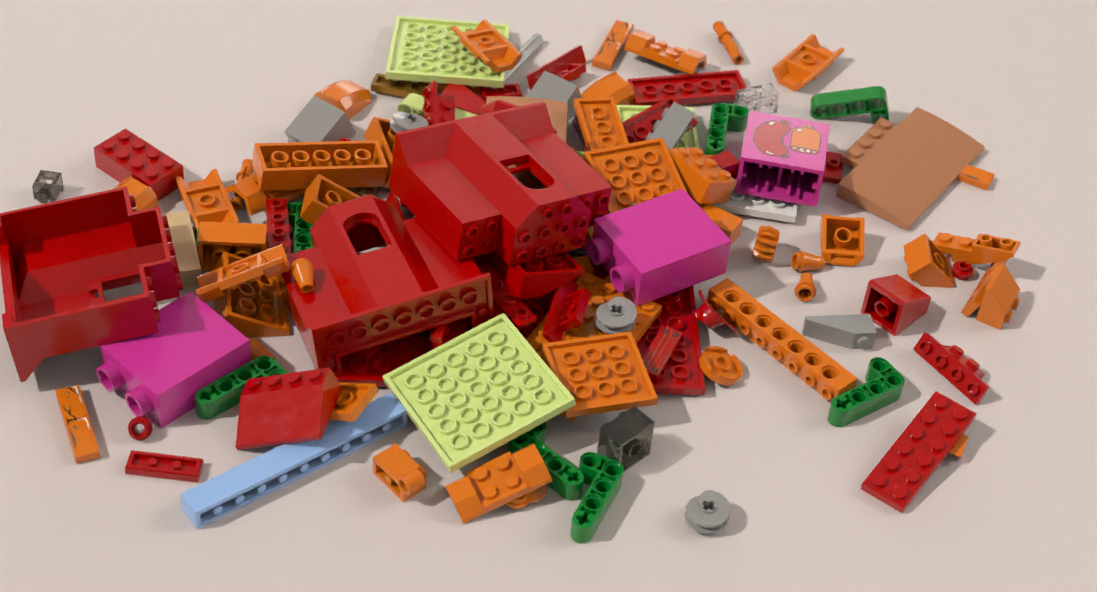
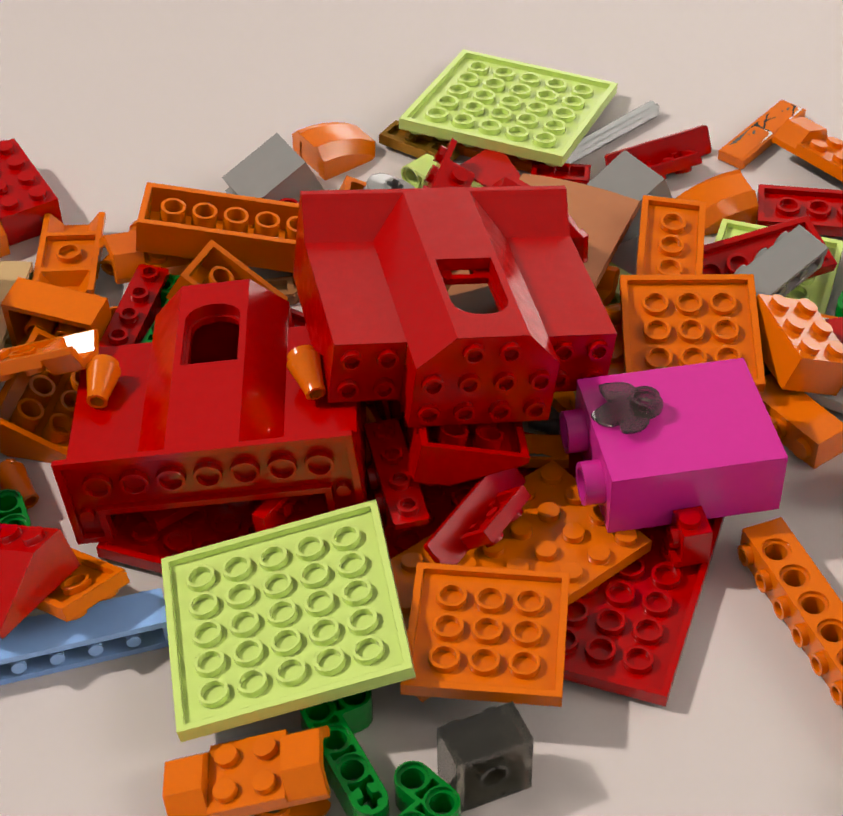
camera: 25 degrees right, 0 degrees up
(399, 472) = (114, 720): orange hinge -> none
(437, 243) = (307, 370): none -> orange cone
(490, 47) = (563, 107): orange piece -> none
(616, 316) = (558, 542): light grey piece -> none
(632, 229) = (628, 406): none -> clear smoke plate
(661, 351) = (614, 618): red tile -> none
(683, 299) = (688, 537): none -> red brick
(709, 316) = (728, 575): red hat -> none
(720, 365) = (712, 663): orange tile -> none

